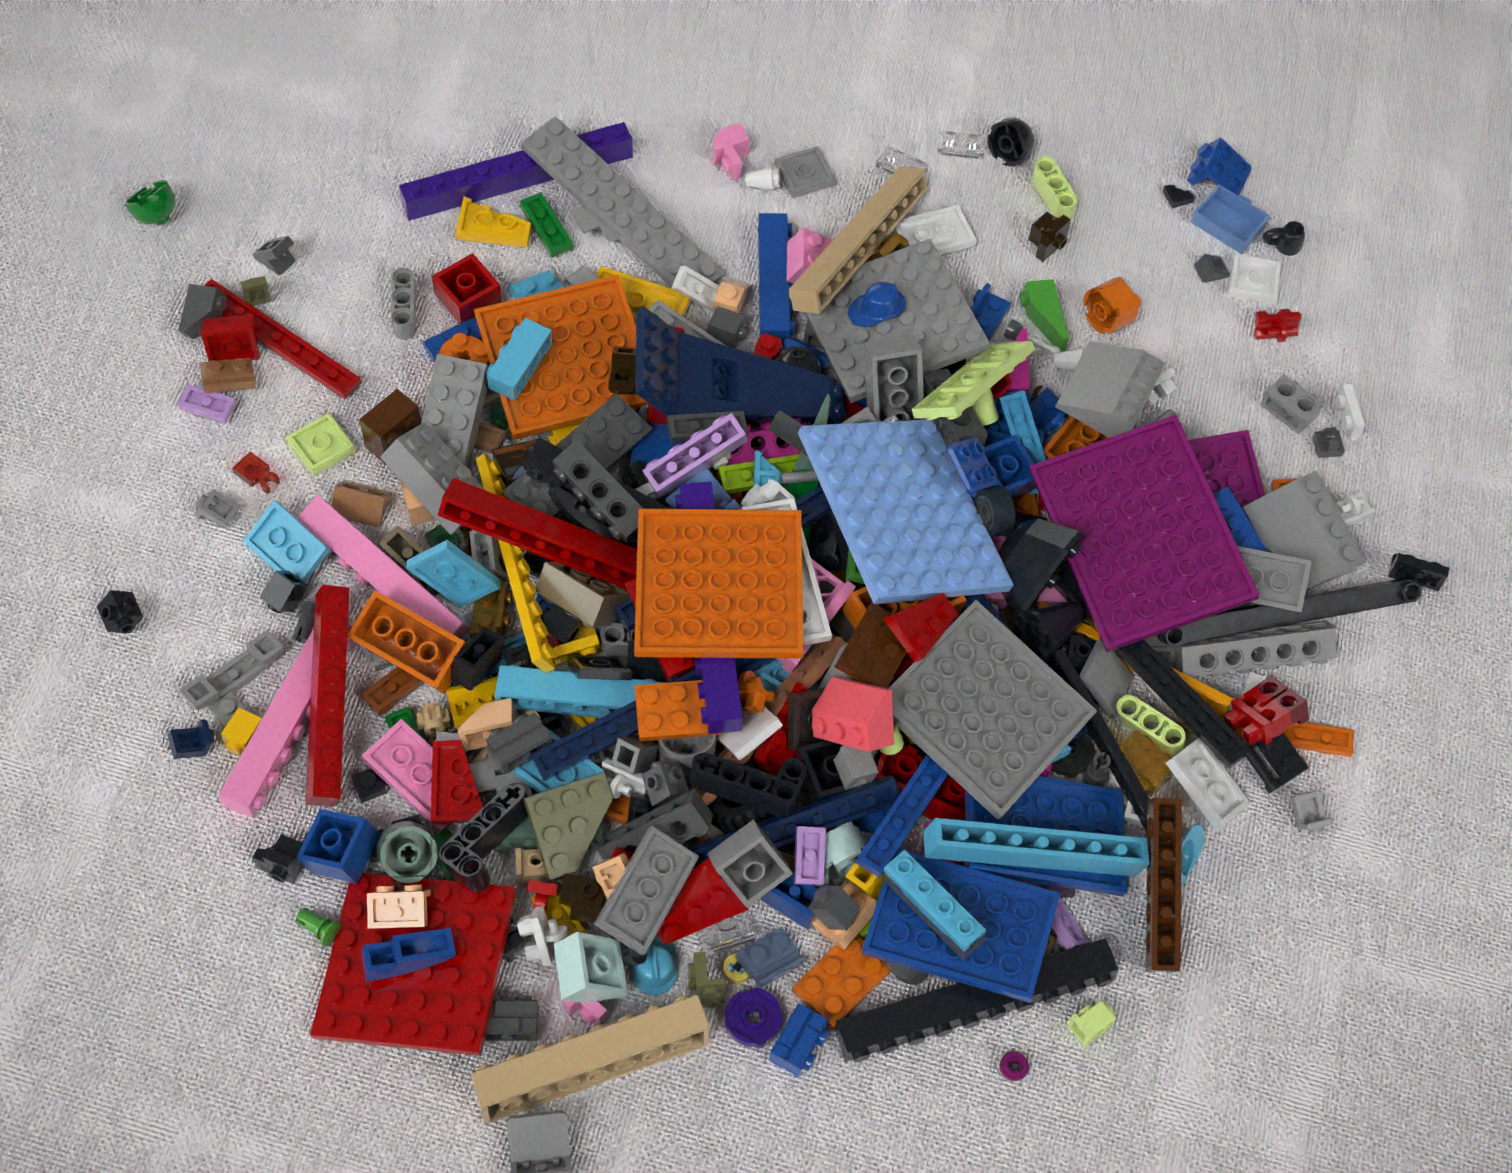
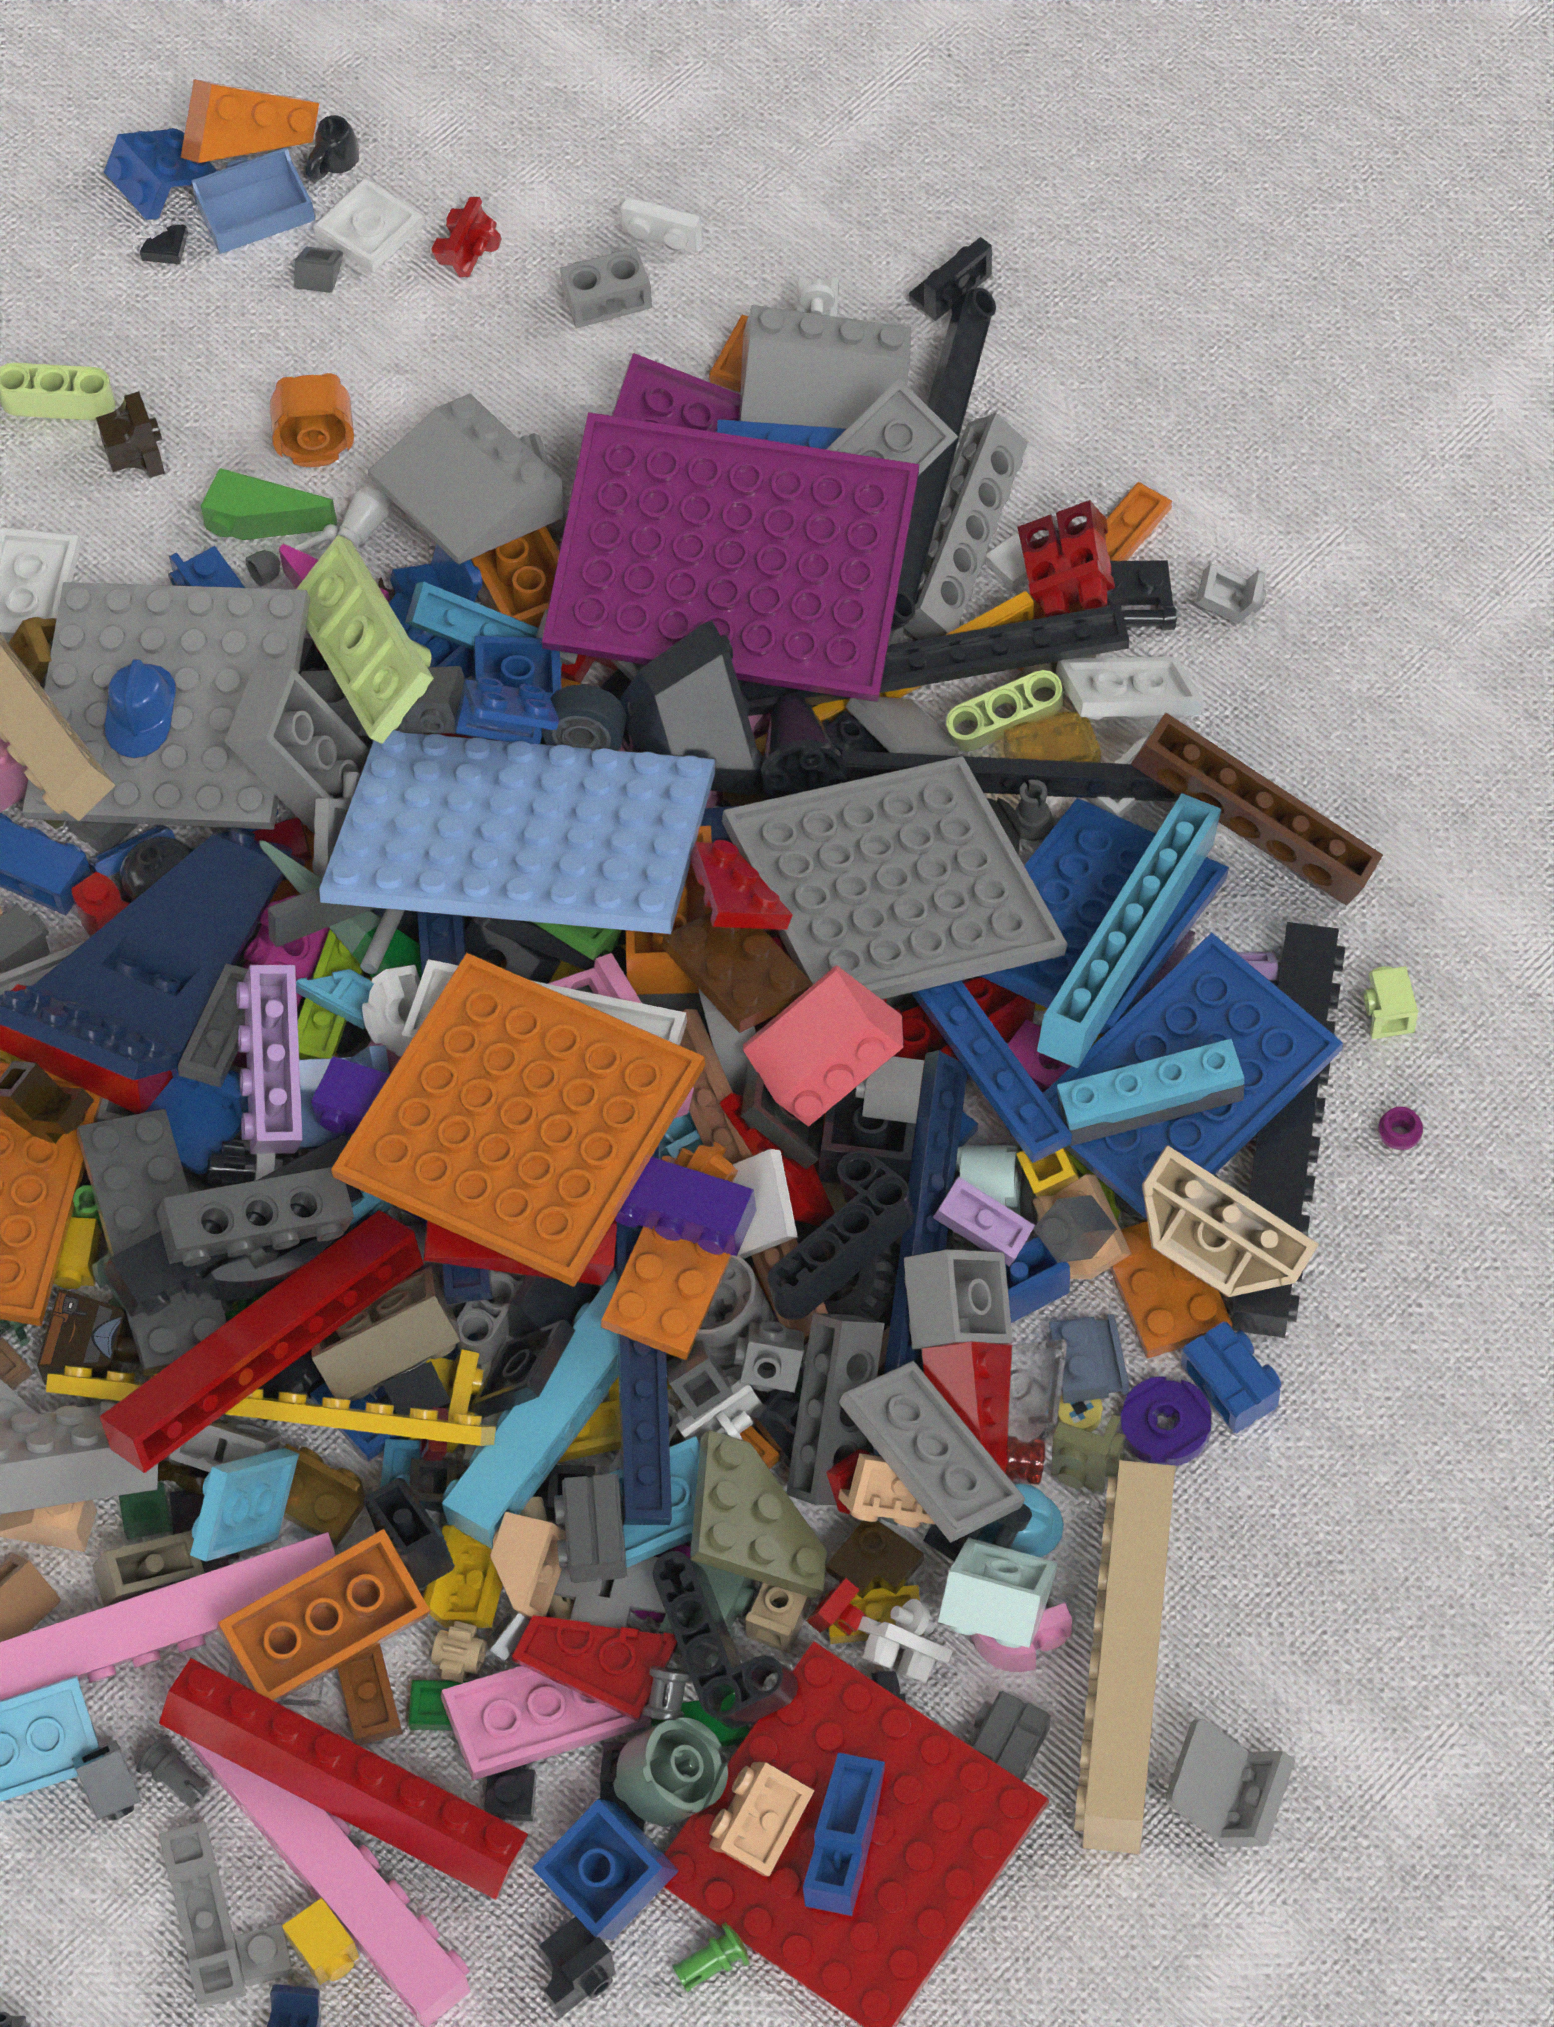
camera: 55 degrees left, 0 degrees up
(446, 826) = (661, 1677): none -> dark grey bush
(685, 948) = (1025, 1459): none -> clear red wheel
(872, 983) = (1219, 1230): none -> tan wedge
(1269, 187) = (243, 121): none -> orange wedge
(1328, 443) = (691, 279): dark grey tile -> none

